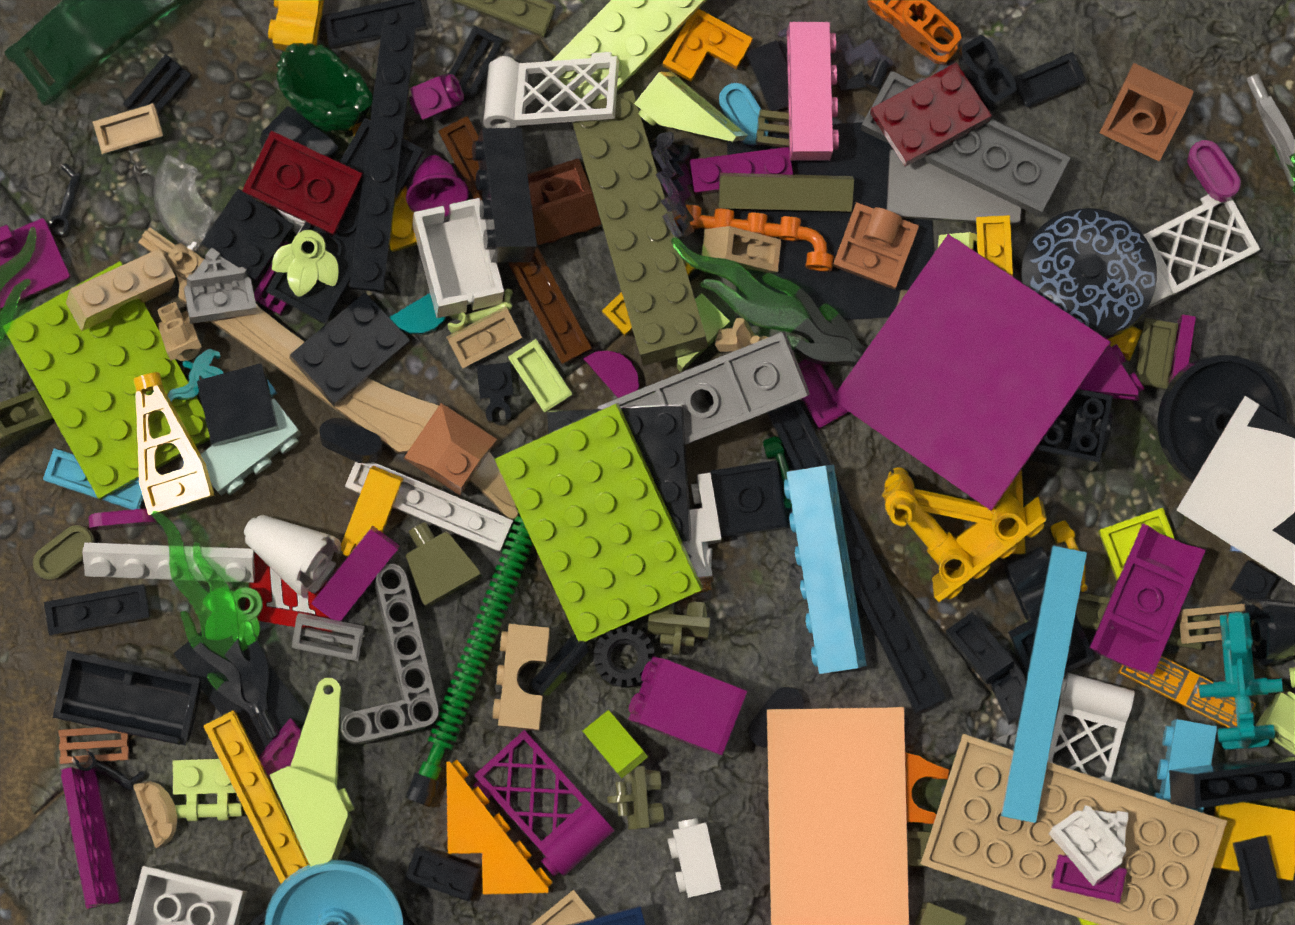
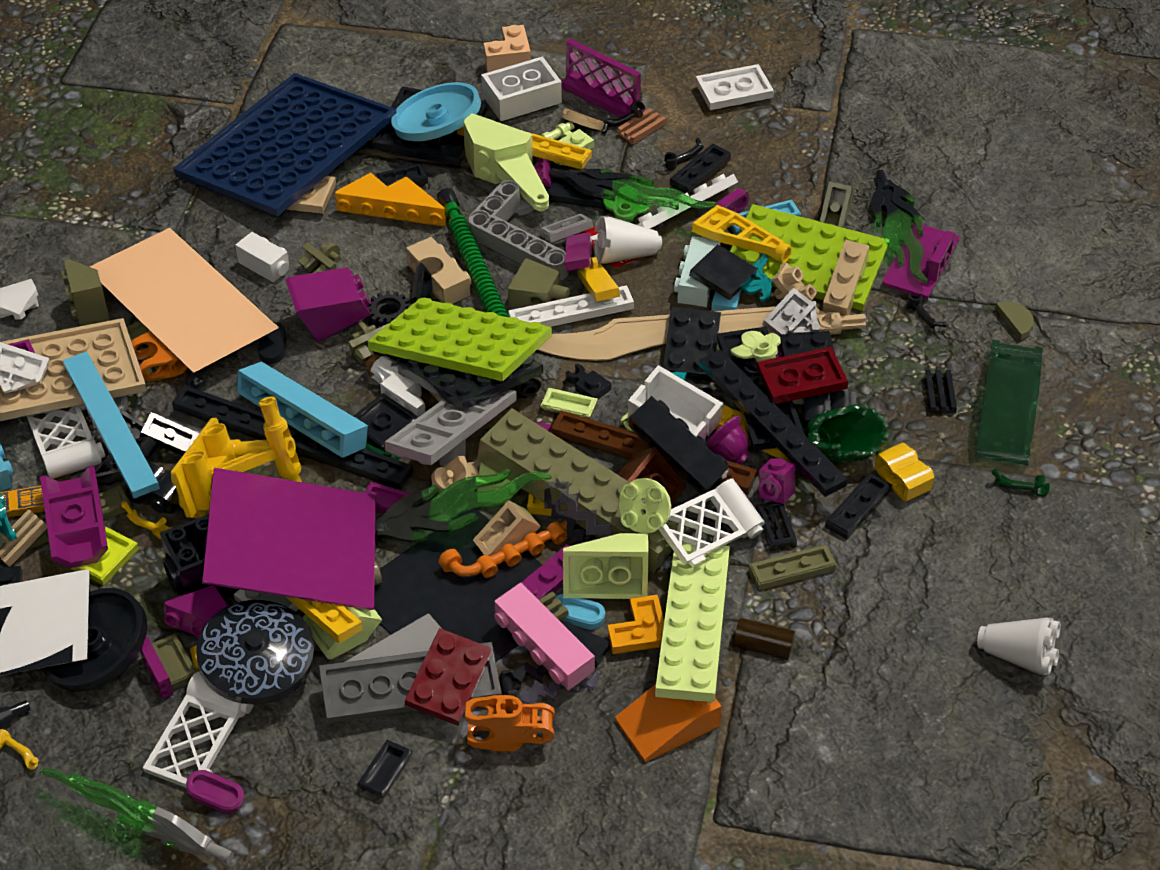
camera: 140 degrees right, 35 degrees down
(62, 553) = (747, 179): olive tile -> none
(102, 653) = (672, 159): none -> black piece
(127, 698) = (641, 140): black container -> none
(128, 128) = (932, 359): tan tile -> none
(179, 203) = (861, 339): clear brick -> none
(350, 440) = (645, 304): black tile -> none
(450, 449) = (583, 332): nougat slope -> none
(484, 337) = (617, 398): tan plate -> none
(573, 837) = (345, 227): magenta piece -> none
(615, 744) = (368, 274): lime tile -> none
(619, 122) = (632, 505): none -> yellowish green plate
(785, 192) = (506, 579): olive tile -> none
(875, 245) = (420, 592): nougat plate -> none
(981, 66) = (431, 730): black brick -> none
(1146, 112) = (295, 794): nougat slope -> none

